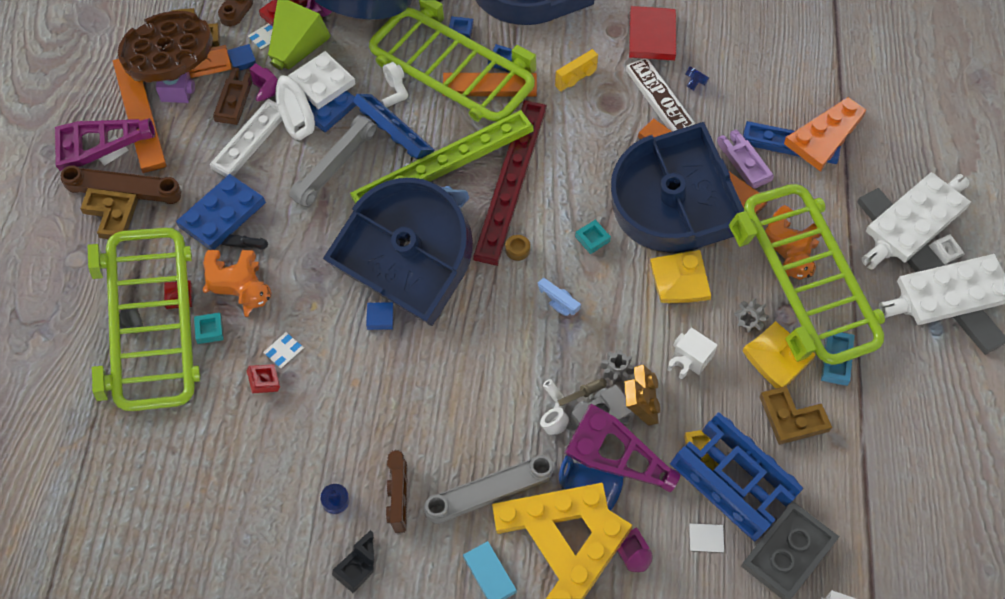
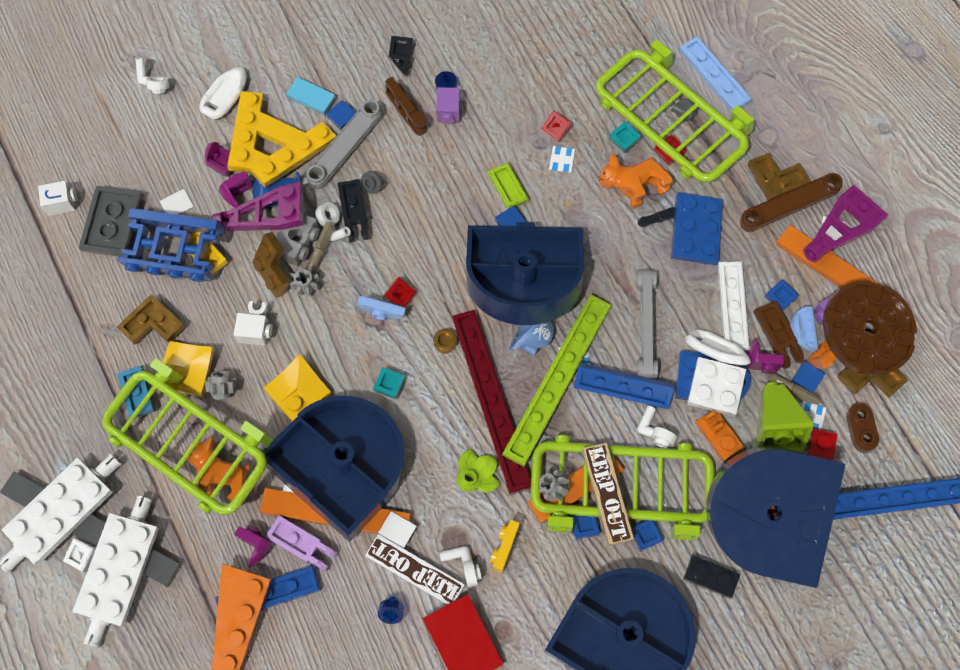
camera: 150 degrees right, 10 degrees up
(67, 343) = (714, 74): none -> light blue tile
(202, 124) = (782, 294): none -> blue tile
(209, 89) = (804, 328): none -> light blue plate
(262, 58) = (795, 390): none -> dark tan piece
(348, 55) = (719, 435): none -> orange plate
(353, 464) = (448, 105): none -> medium lavender brick
(356, 351) = (507, 186): none -> lime tile
(470, 528) = (340, 114): none -> blue tile
(471, 54) = (607, 494): none -> tile
(486, 431) = (372, 182): none -> dark grey plate
(510, 77) = (554, 485): none -> light grey gear
(522, 416) = (353, 207): none -> black hinge
(532, 307) = (399, 292): none -> red tile
(560, 134) = (479, 469): none -> lime plate
(616, 69) = (471, 571): none -> white plate
(636, 508) = (234, 186): none -> magenta plate
(656, 125) = (397, 529): none -> white sticker
(784, 176) = (252, 537): none -> magenta plate

